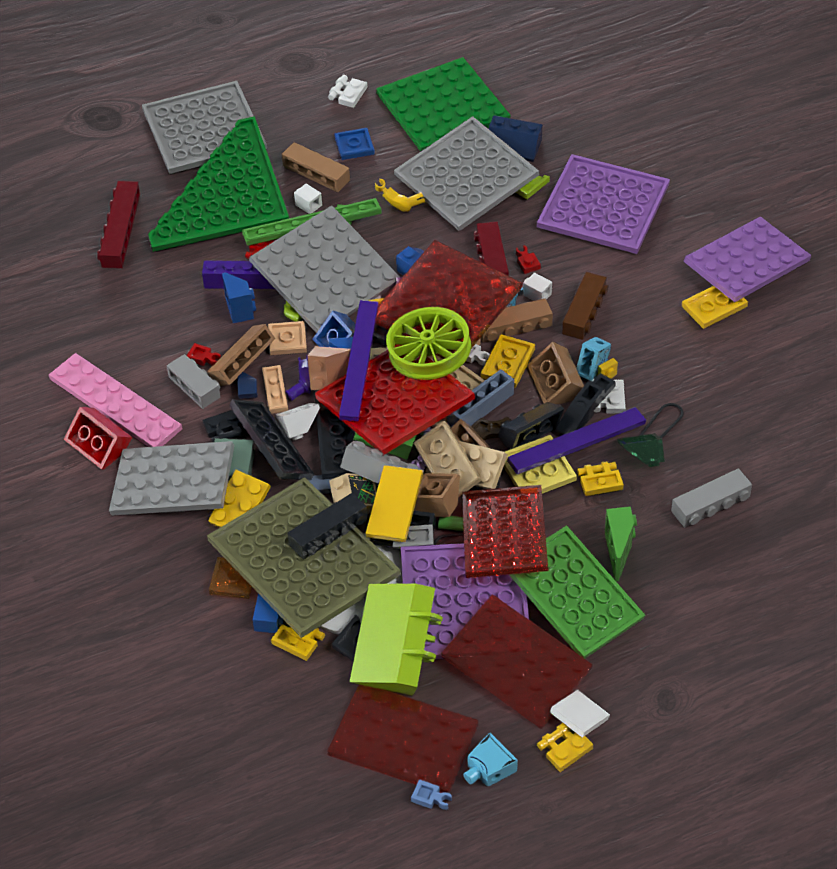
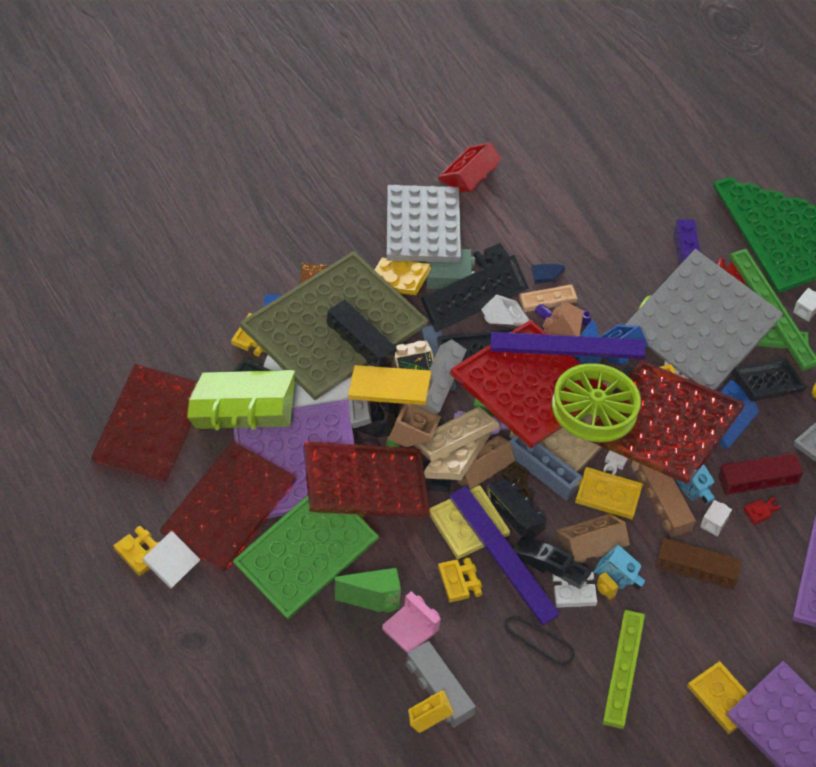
camera: 80 degrees right, 5 degrees up
(115, 401) = (516, 178): bright pink plate -> none
(119, 224) = (741, 155): dark red brick -> none
(194, 381) = (545, 231): light grey brick -> none
(203, 354) = (580, 235): red plate -> none
(238, 298) = (649, 251): blue slope -> none
(241, 354) = (580, 263): medium nougat brick -> none
(289, 338) = (615, 303): light nougat tile -> none
(396, 231) = (768, 380): none -> black plate
(428, 795) = (86, 441): medium blue plate -> none
(490, 762) = (120, 487): medium azure torso -> none
(646, 448) = (501, 617): clear green slope -> none
(651, 516) = (412, 623): none -> bright pink bracket
(689, 367) = (623, 669): none -> lime plate
(741, 504) = (430, 711): none -> yellow slope

